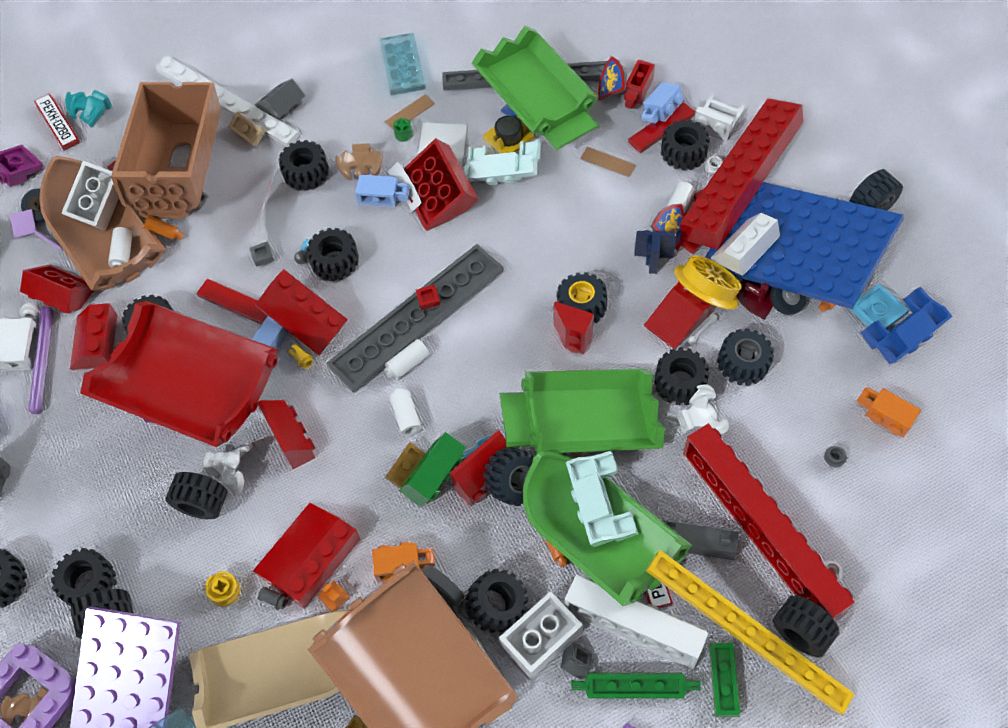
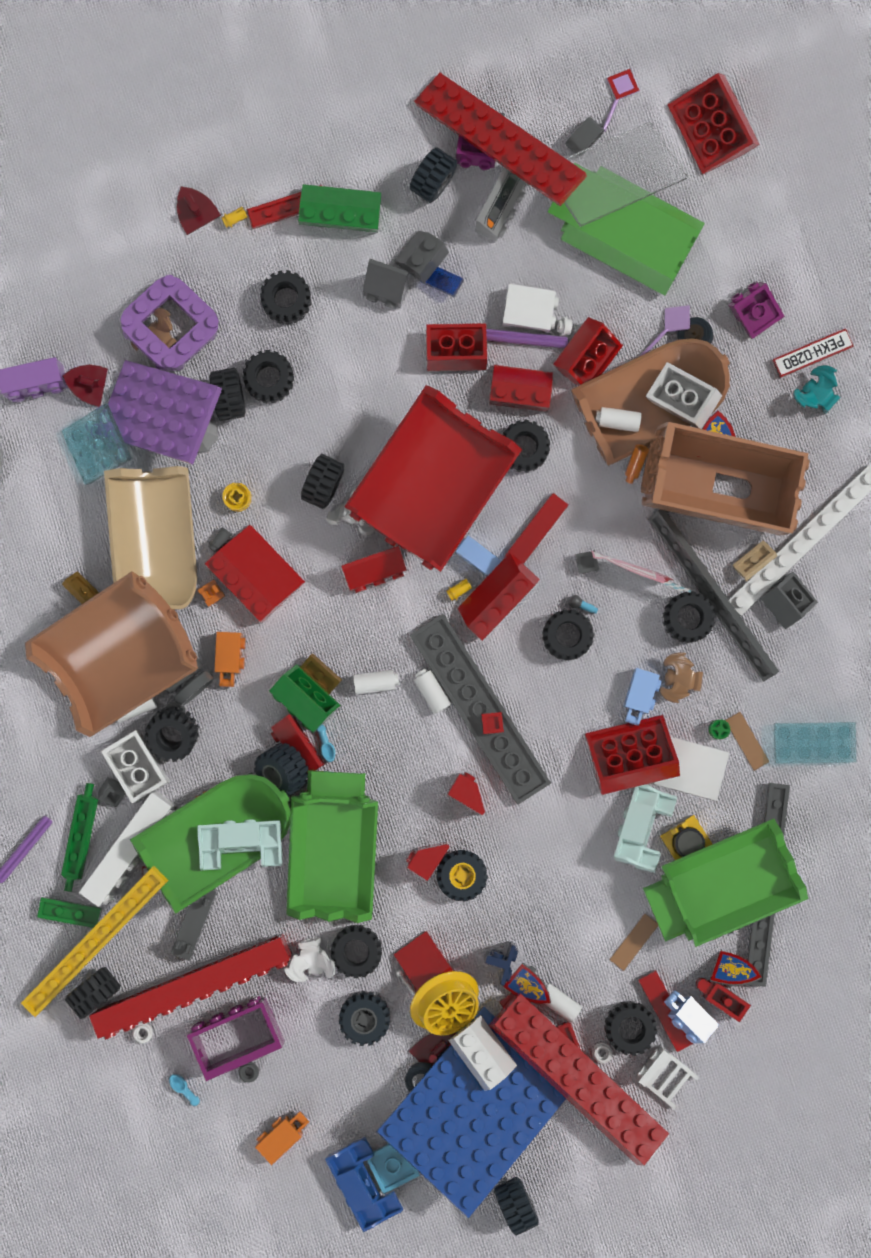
camera: 90 degrees right, 25 degrees up
(50, 399) = (456, 347): none -> red slope
(267, 162) = (709, 588): none -> dark grey plate
(402, 177) = (646, 721): white sticker -> none
(500, 305) = (467, 792): none -> red slope
(819, 455) = (244, 1057): none -> magenta hose
(873, 522) = (179, 1085): none -> medium azure piece

